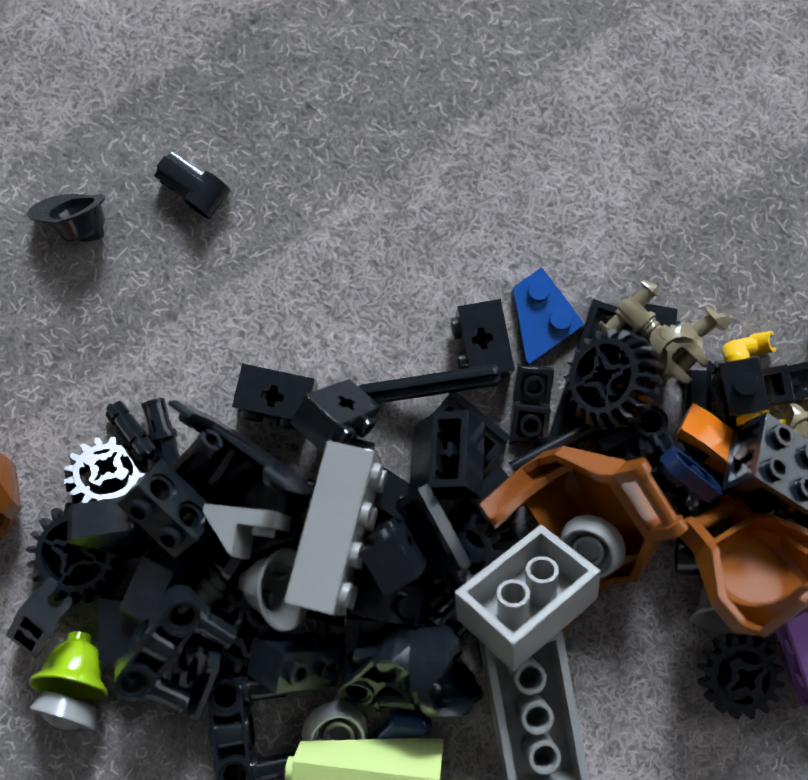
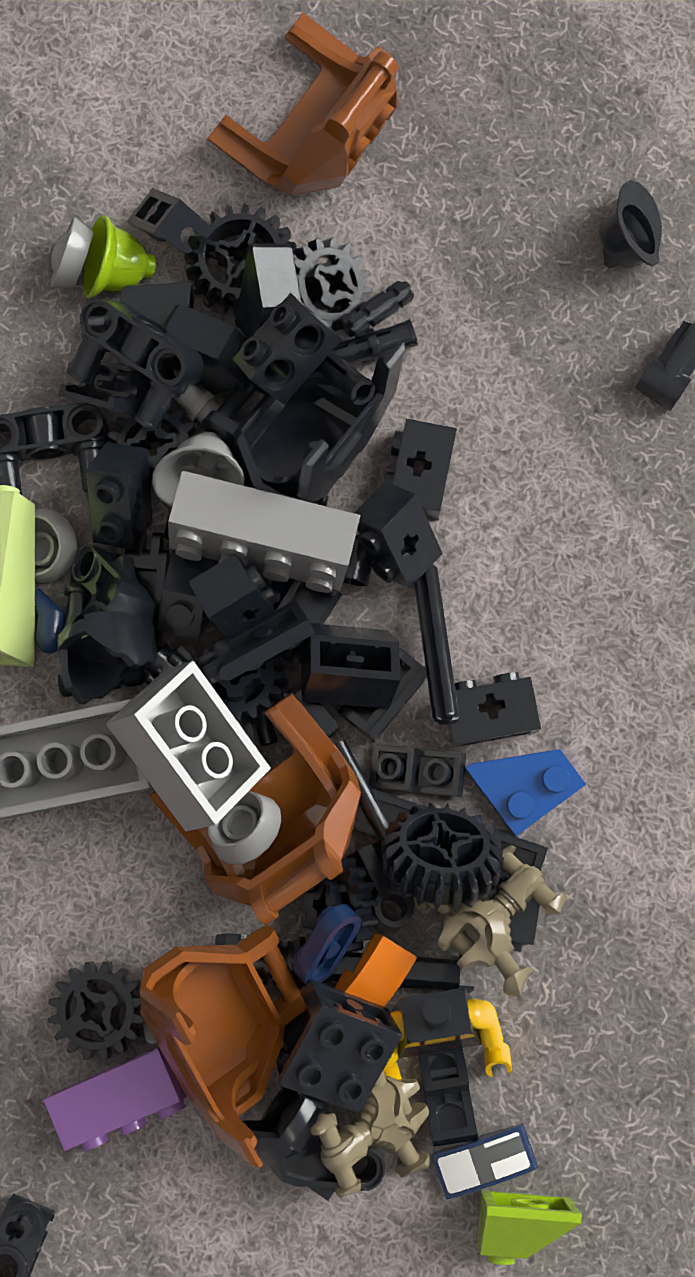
camera: 95 degrees right, 0 degrees up
(239, 525) = (265, 426): light grey slope -> none

